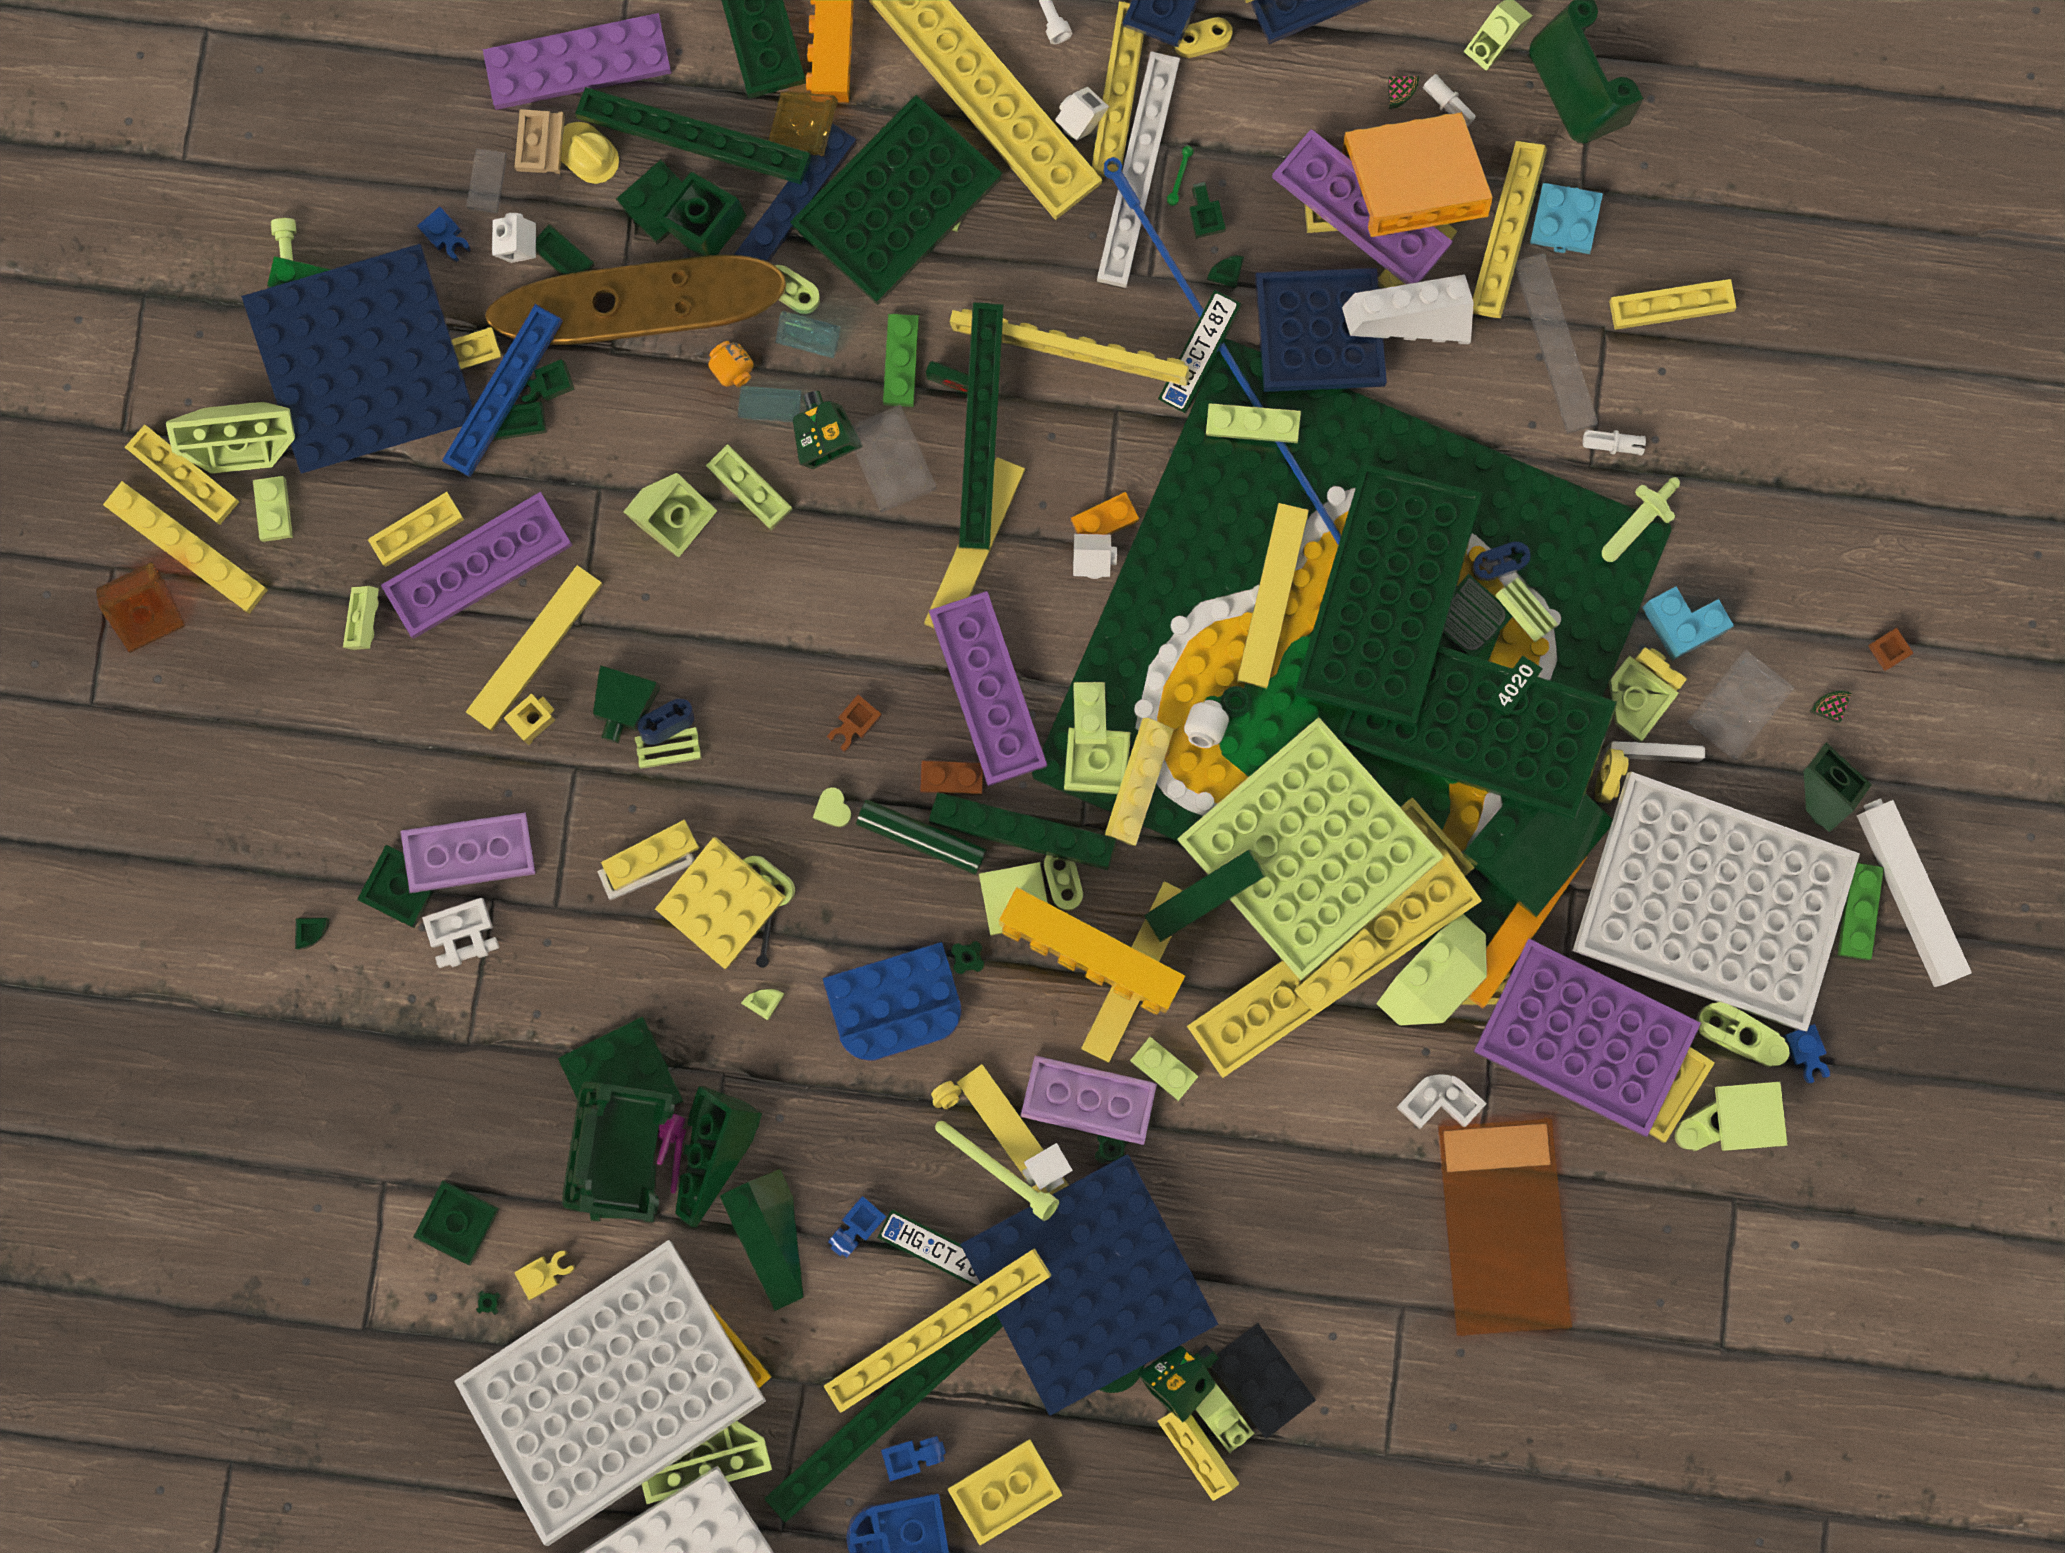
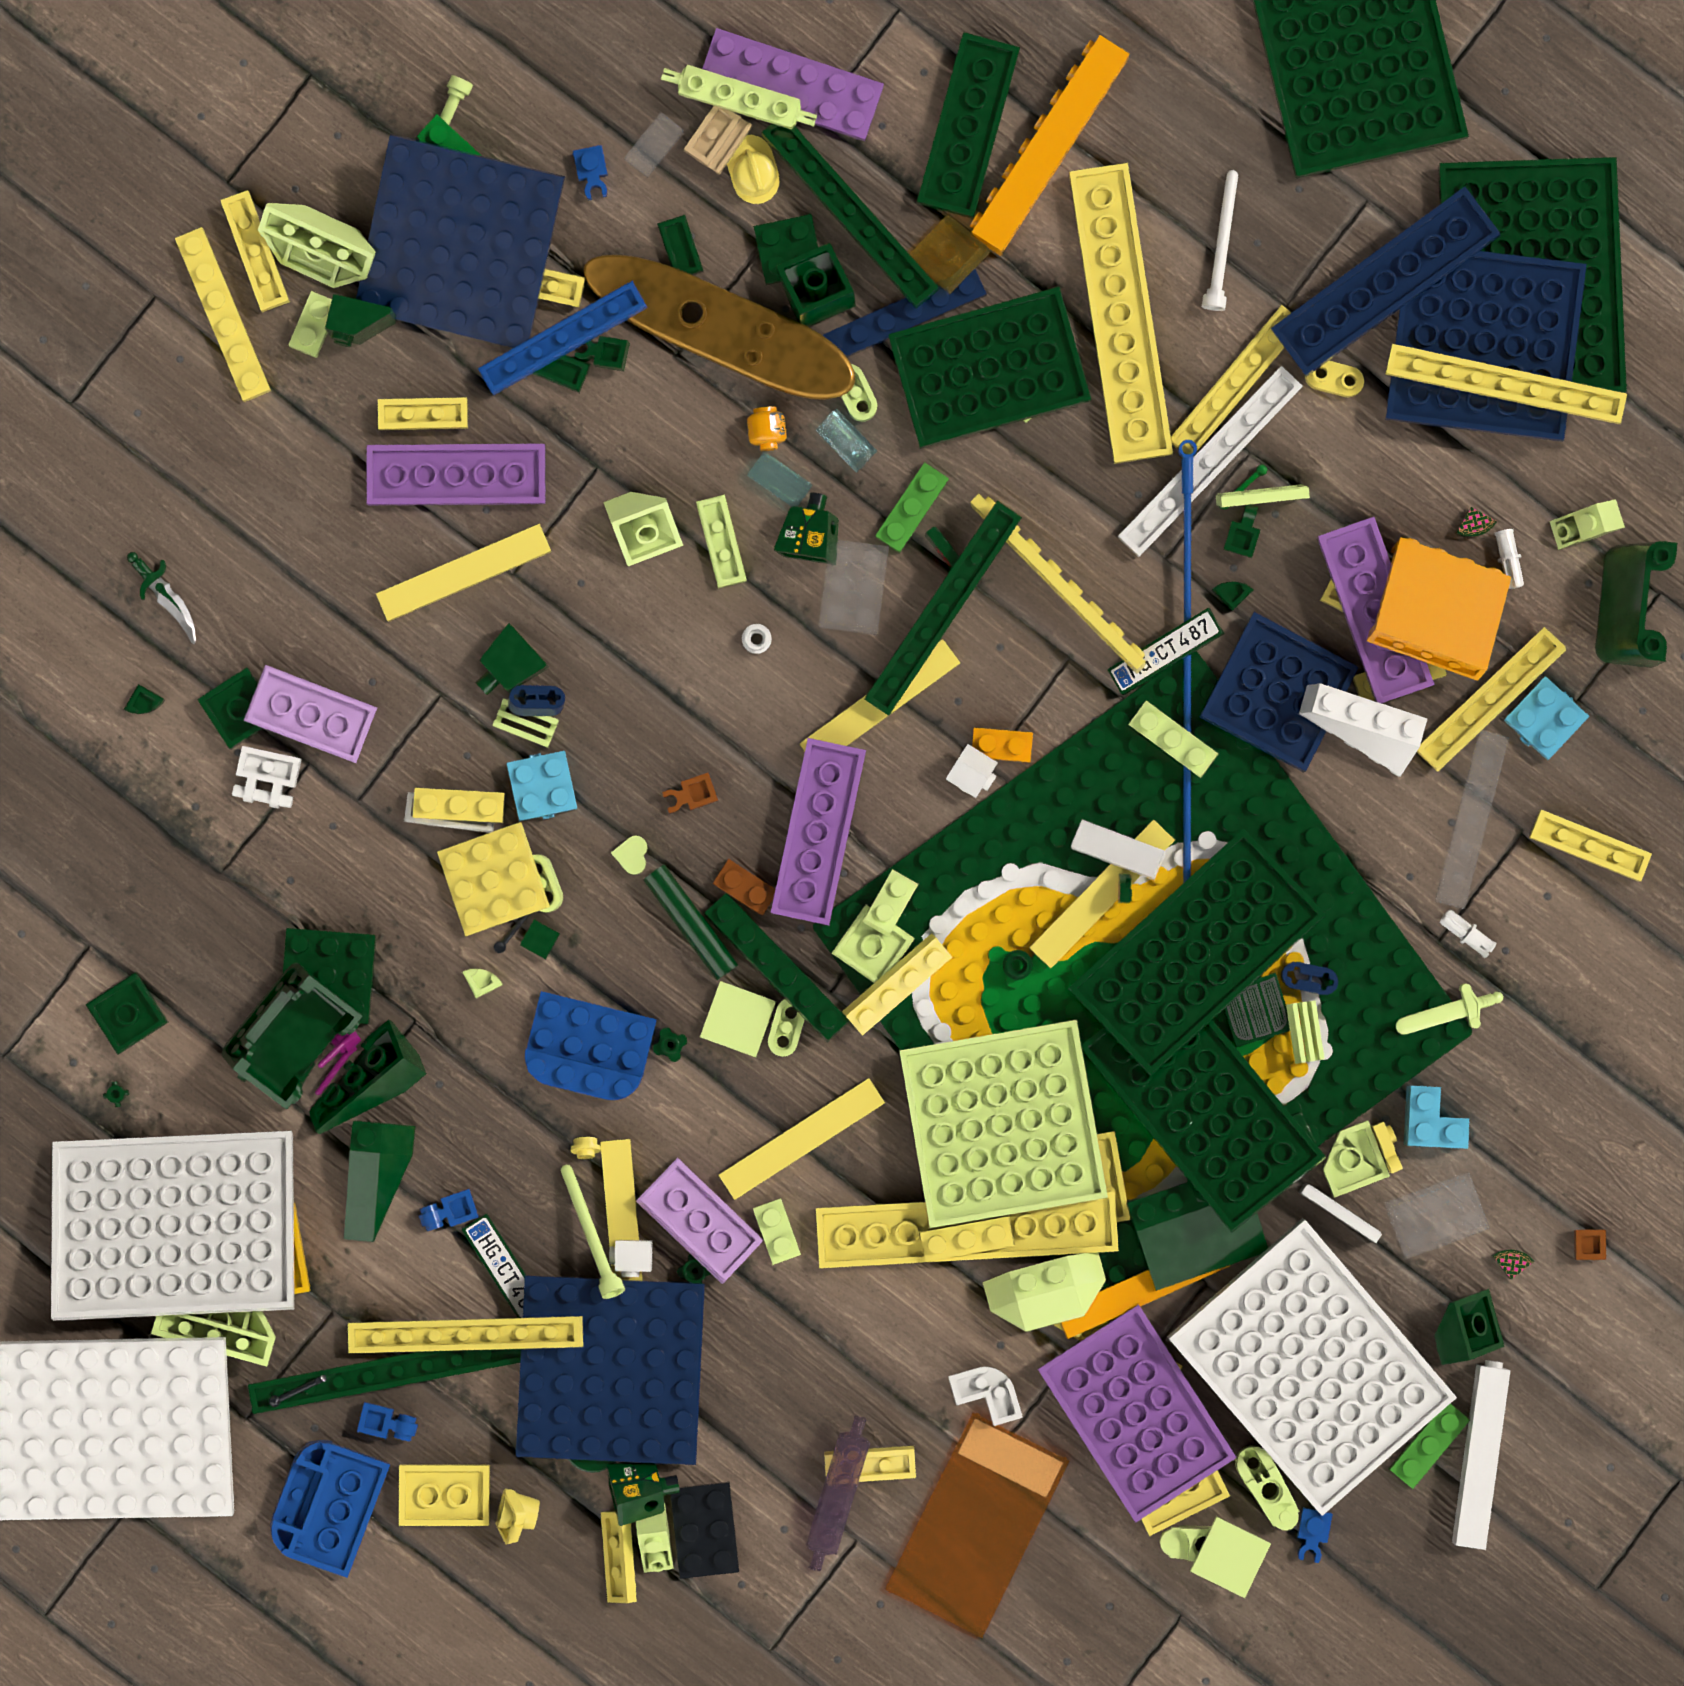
camera: 25 degrees right, 5 degrees up
(139, 607) = (156, 345): clear orange slope -> none
(274, 825) = (163, 593): none -> piece
(308, 478) = (356, 320): none -> dark green slope
(360, 617) = (334, 462): yellowish green plate -> none
(514, 238) = (647, 211): white brick -> none
(520, 715) = (415, 631): light yellow brick -> none
(537, 93) = (739, 97): none -> yellowish green plate
(540, 1275) = (169, 1097): light yellow plate -> none
(715, 795) = (541, 786): none -> medium azure plate
(794, 933) = (539, 939): none -> dark green tile
(798, 1497) = (275, 1400): none -> black hinge
(827, 544) = (756, 629): none -> white plate
(1080, 1468) = (515, 1514): none -> light yellow piece
(1081, 113) = (1189, 385): white brick -> none
(1091, 951) = (772, 1101): yellow brick -> none
(1202, 170) = (1262, 495): none -> yellowish green tile
(1205, 895) = (894, 1111): dark green tile -> none
(1206, 724) = (981, 969): white head -> none
(1263, 547) = (1118, 849): none -> white tile
(1292, 579) = (1124, 889): none -> dark green tile
(1363, 1272) = (838, 1493): none -> plate
(1375, 1229) = (884, 1463): none -> light yellow plate
(1515, 685) = (1252, 1091): dark green sticker -> none
(1607, 781) = (1285, 1214): light yellow plate -> none

